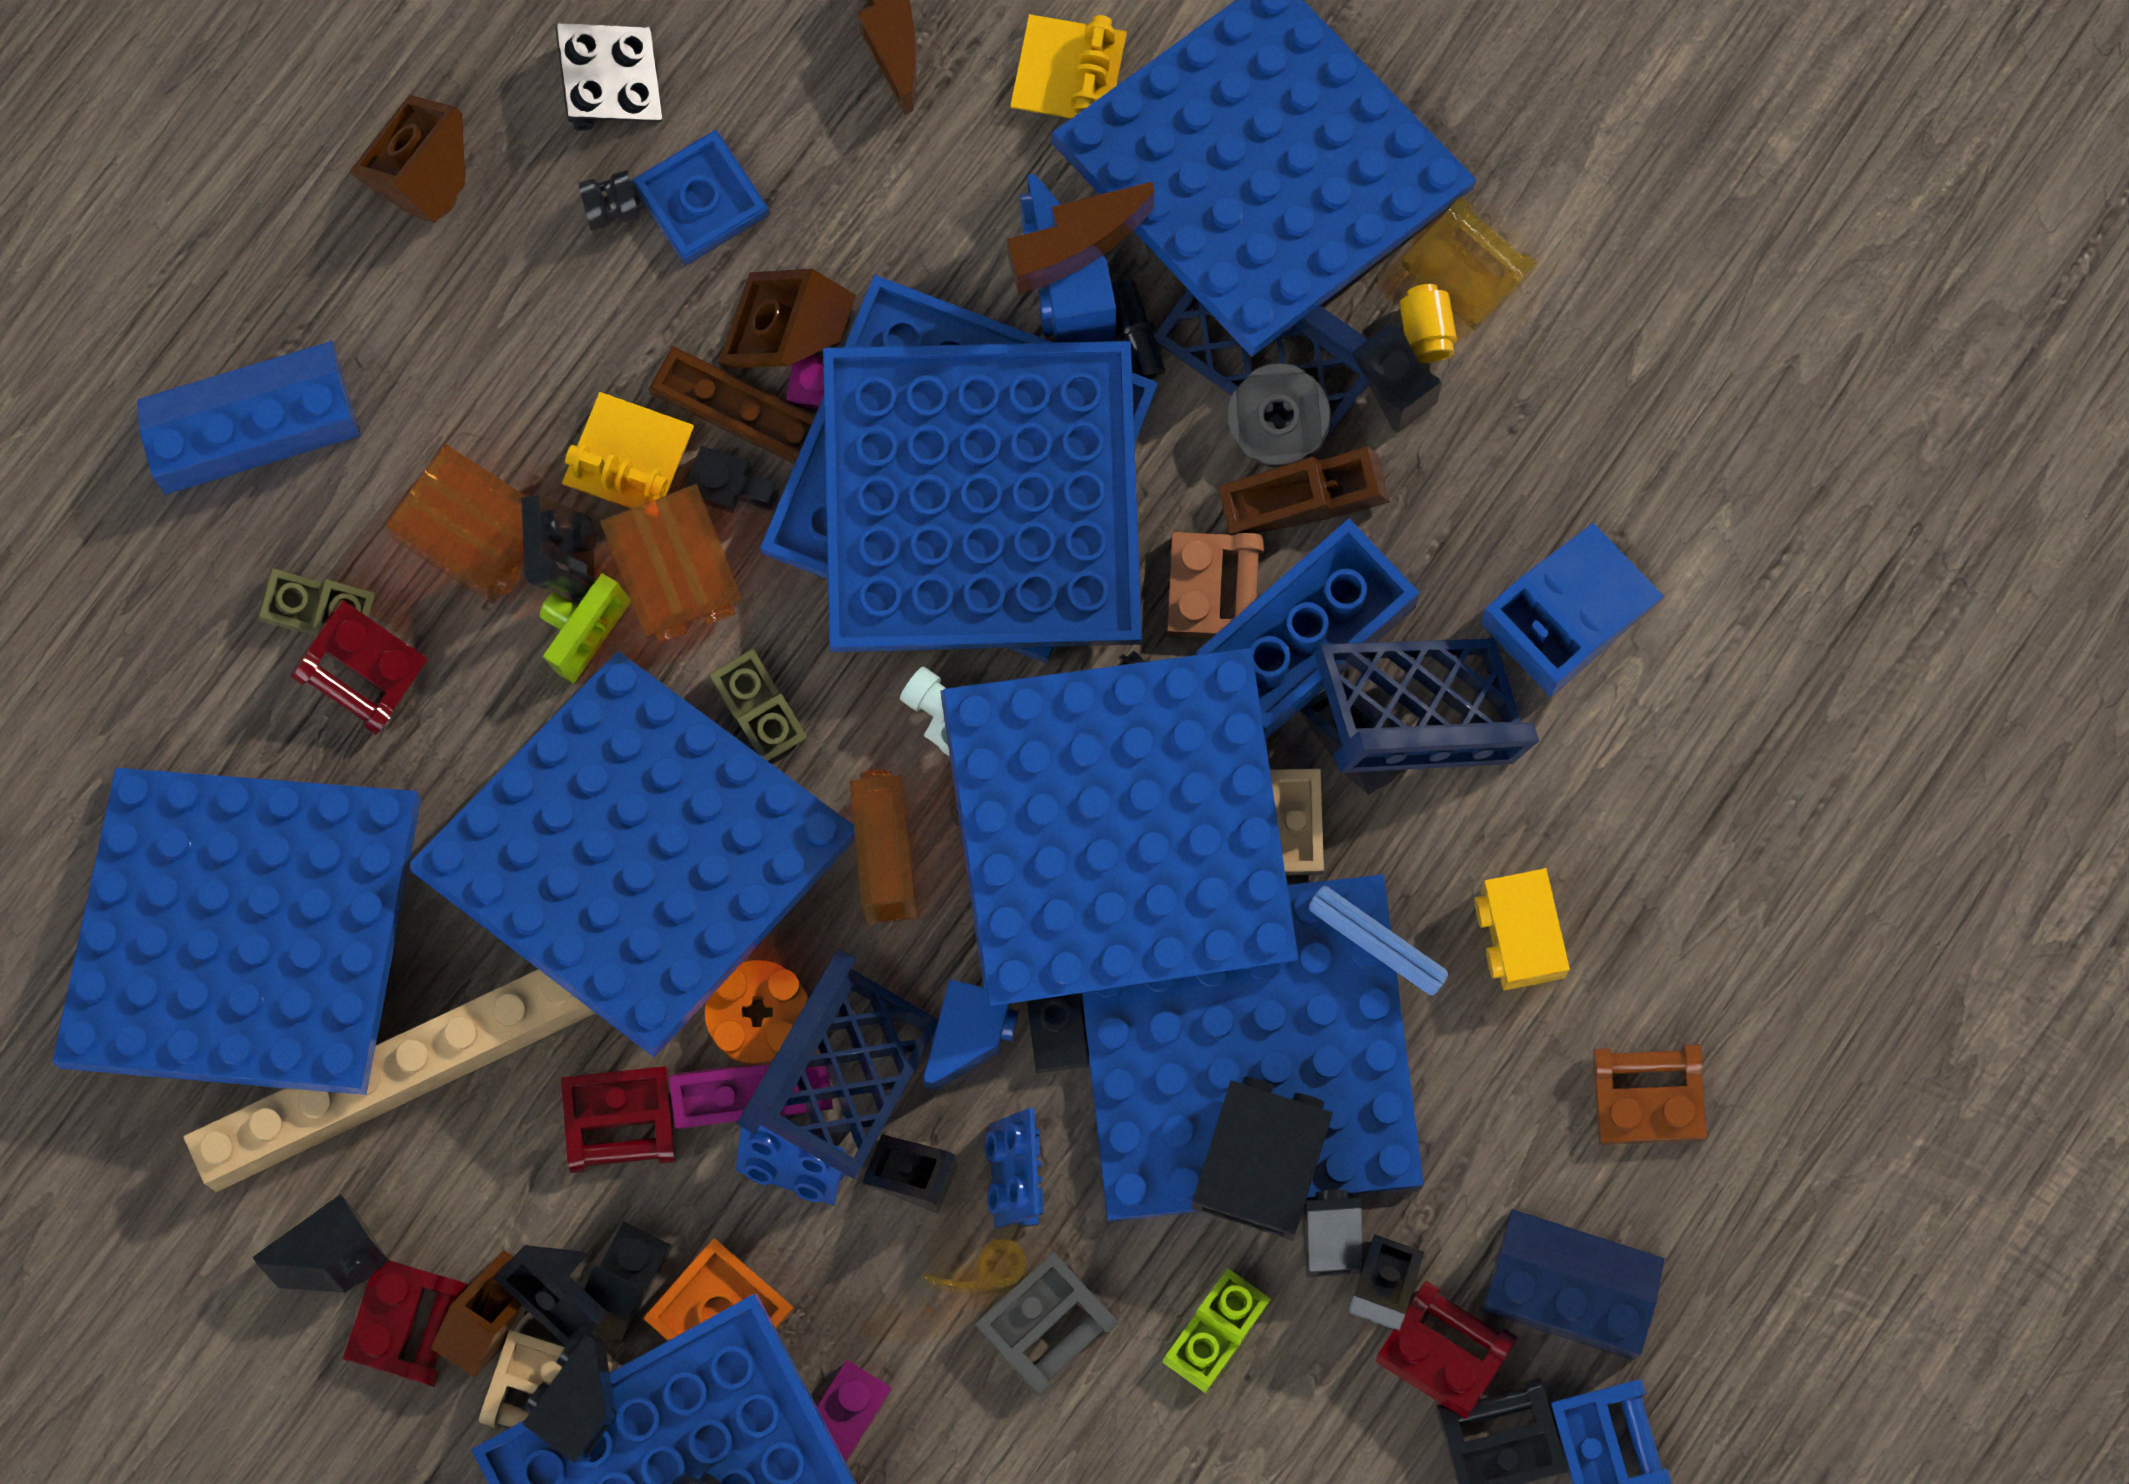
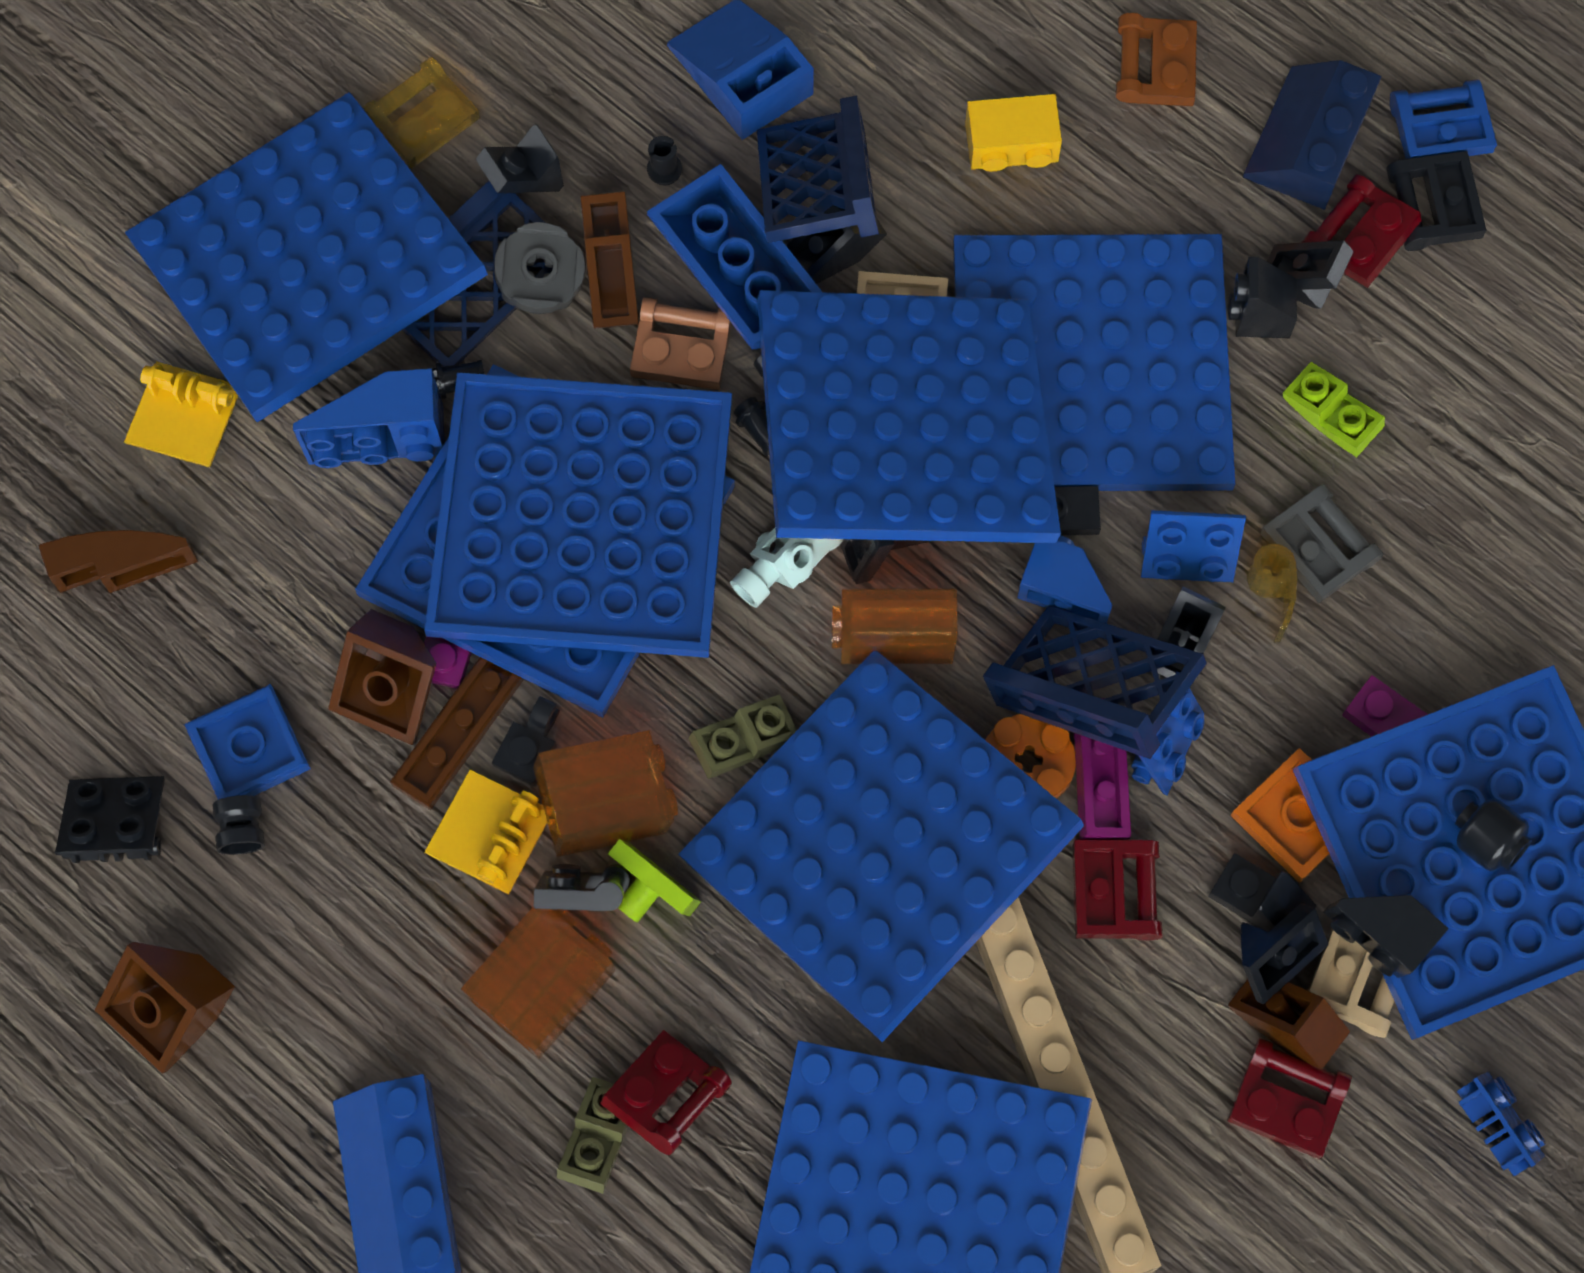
camera: 85 degrees left, 5 degrees down
(323, 1252) = (1226, 1160): black slope -> none
(1079, 235) = (363, 387): reddish brown slope -> none
(1262, 1158) = (1198, 343): black brick -> none
(1378, 940) = (1015, 238): medium blue axle -> none
(1428, 323) = (466, 140): yellow brick -> none
(1431, 547) = (664, 164): none -> black pin

